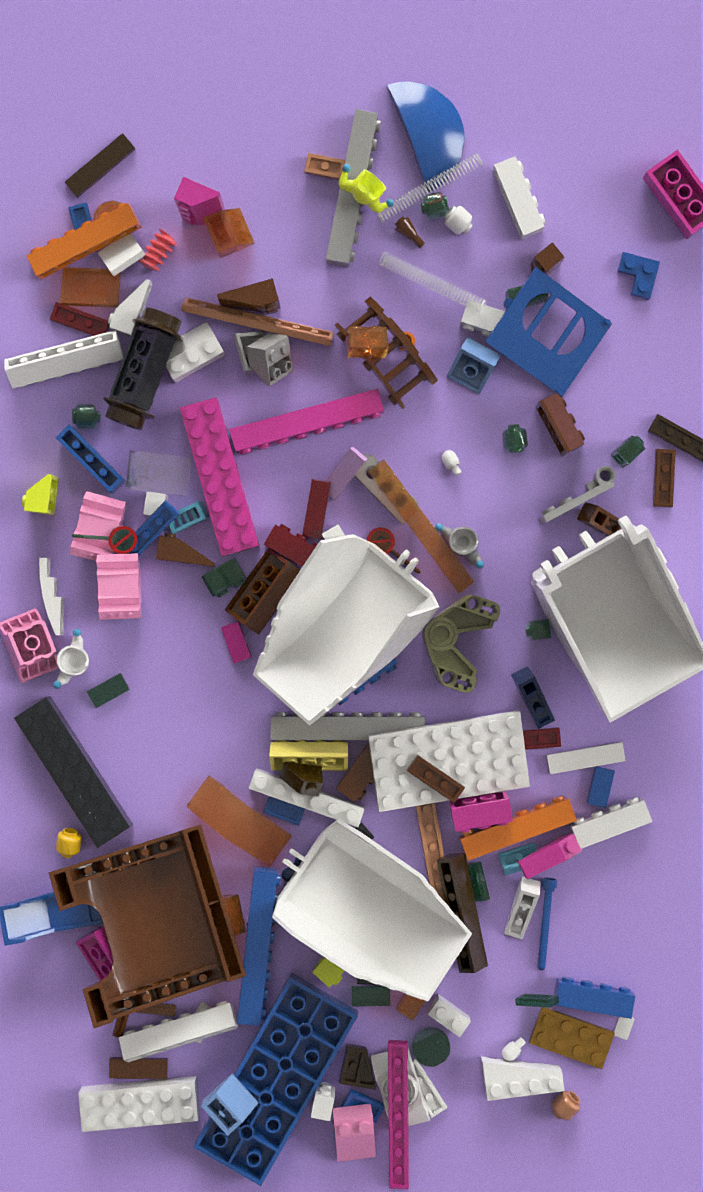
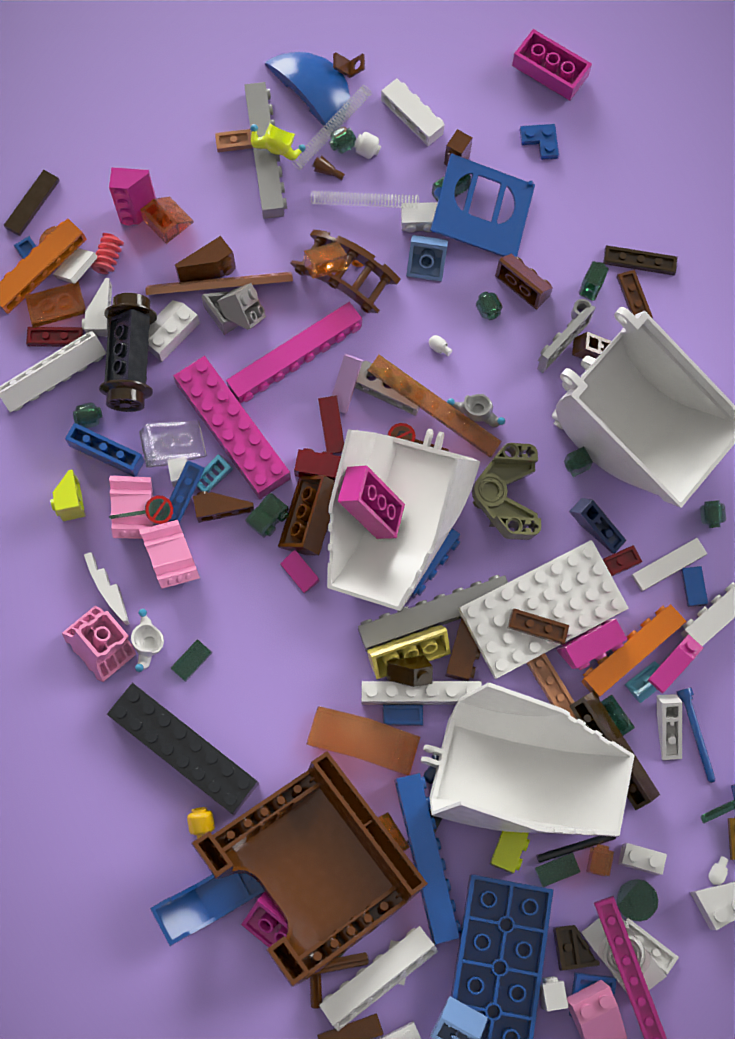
camera: 20 degrees left, 15 degrees down
(321, 609) = (371, 502): none -> dark pink brick
(469, 120) = (347, 66): none -> reddish brown bracket
(647, 725) = (713, 513): none -> head

